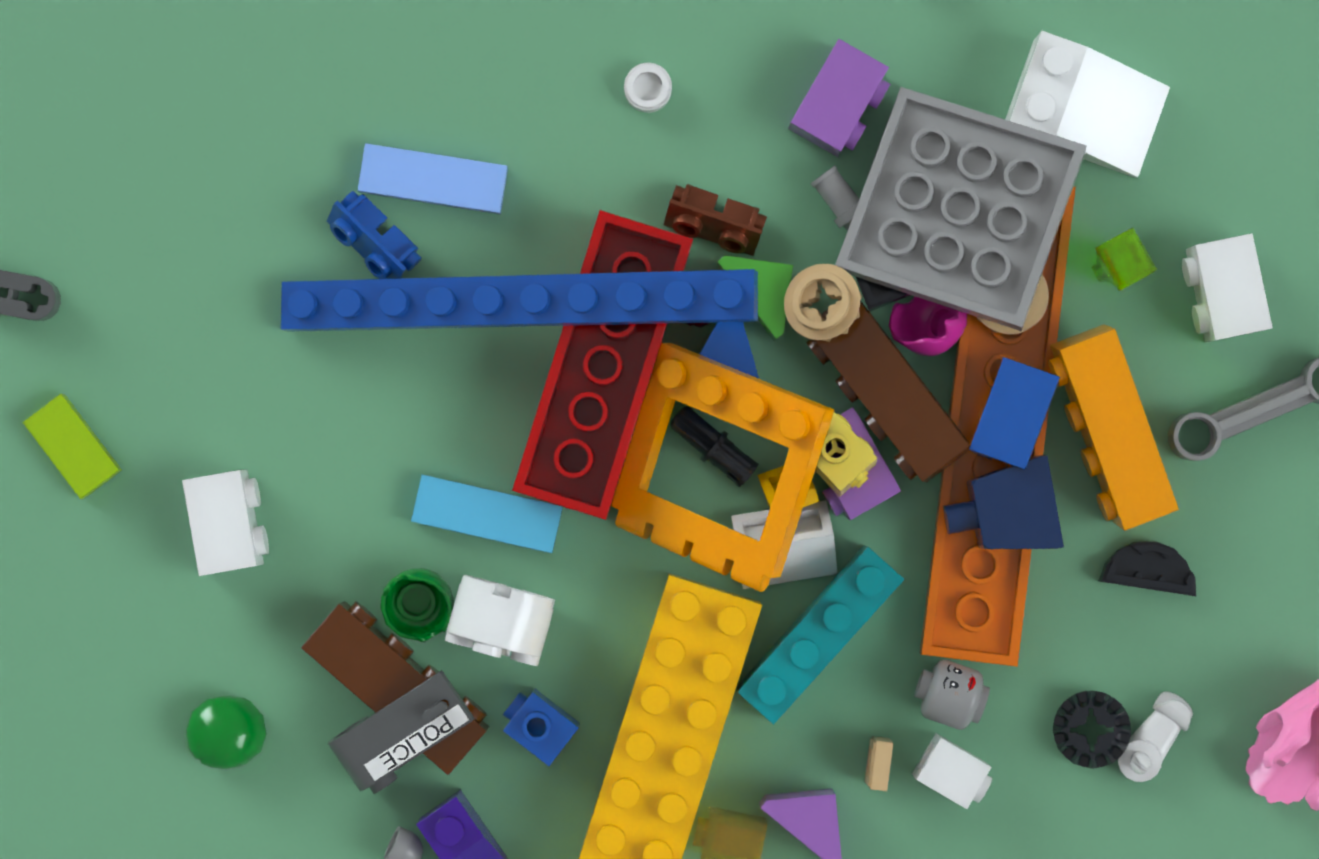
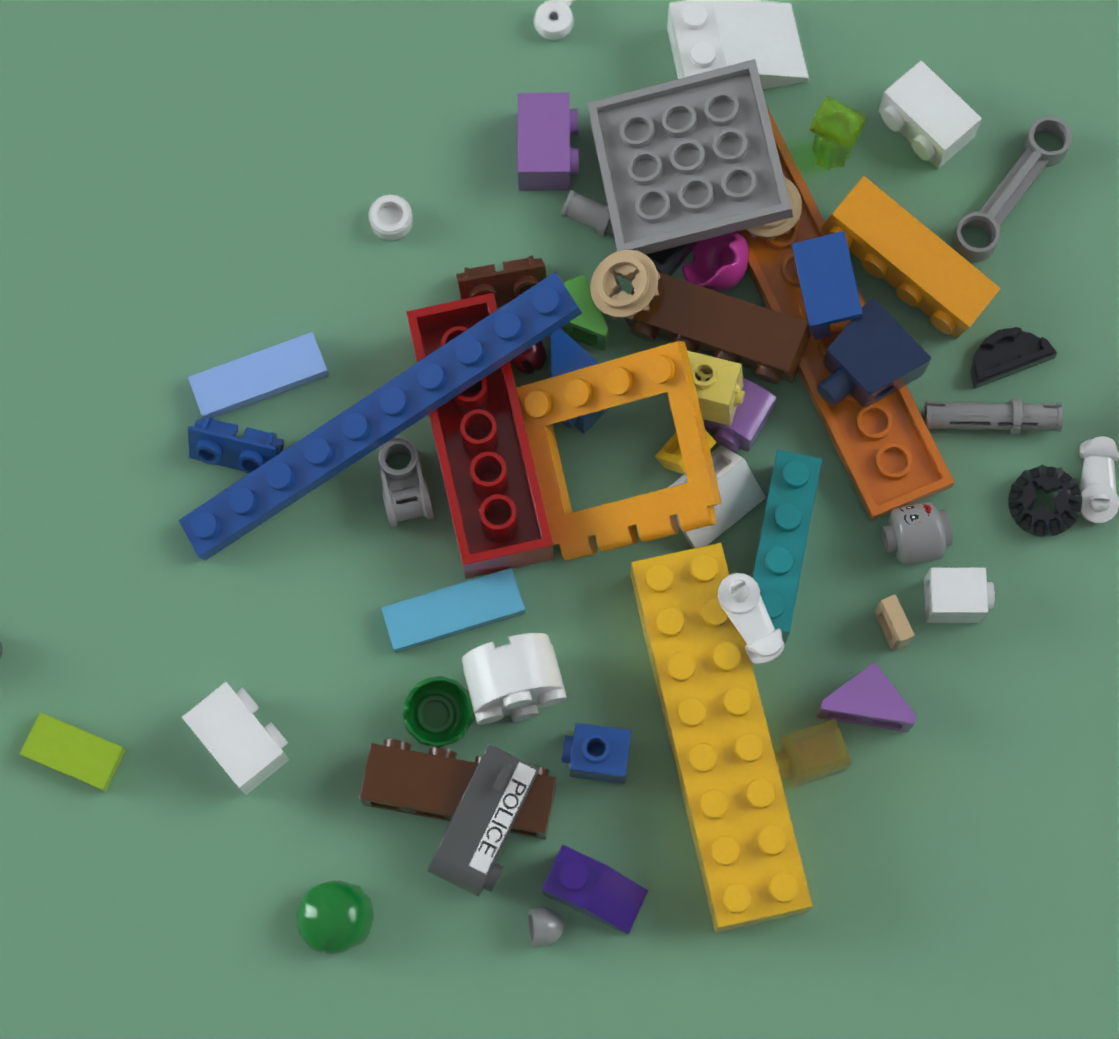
camera: 30 degrees left, 15 degrees down
(506, 373) = (404, 489): none -> light grey piece
(713, 446) = (606, 452): black axle -> none
(743, 687) = (744, 606): none -> white piece
(1105, 627) = (1002, 416): none -> light grey pin

